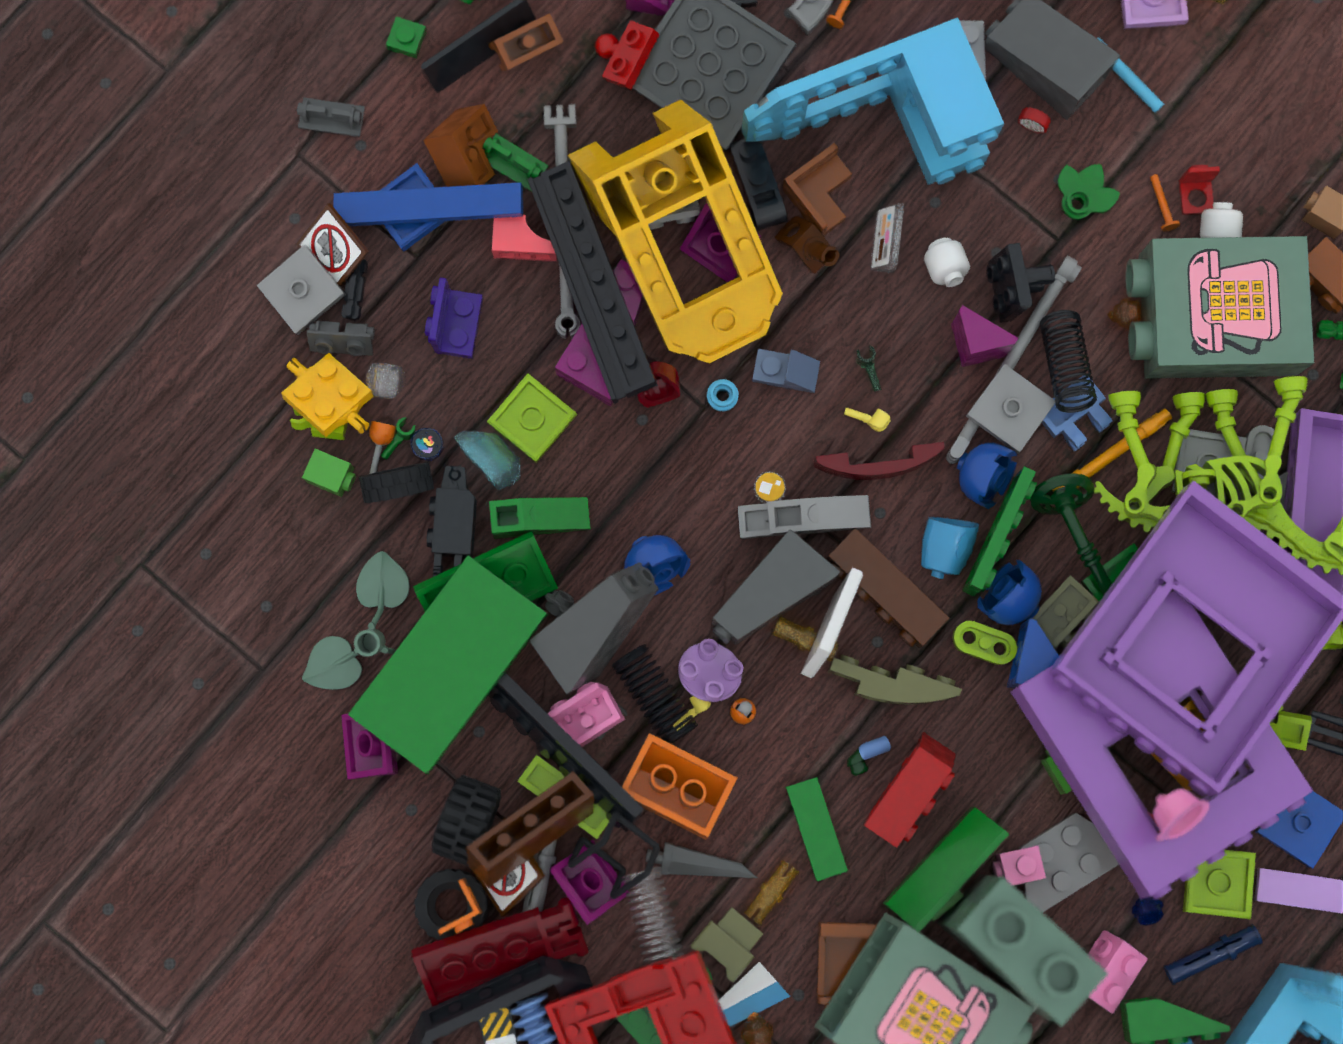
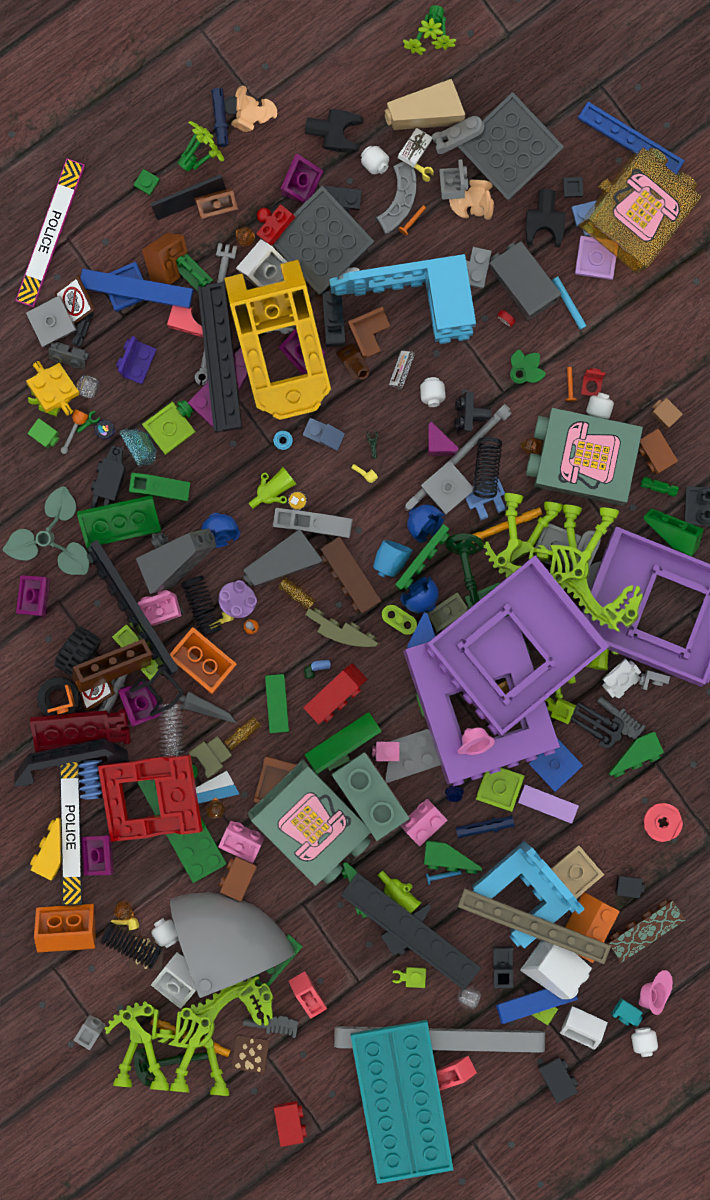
camera: 20 degrees right, 5 degrees up
(268, 151) = (50, 233): none -> tile
(330, 117) = (91, 221): dark grey hinge -> none
(396, 482) = (80, 449): black tyre -> none
(448, 665) = (86, 561): green tile -> none
(550, 379) = (184, 409): none -> green plate
(584, 85) = (245, 236): none -> clear orange plate
(622, 120) = (262, 265): none -> white slope
(668, 385) = (250, 426): dark red piece -> none
(720, 483) = (269, 491): none -> lime piece
(832, 623) = (312, 588): white tile -> none
(839, 463) = (340, 497): dark red slope -> none

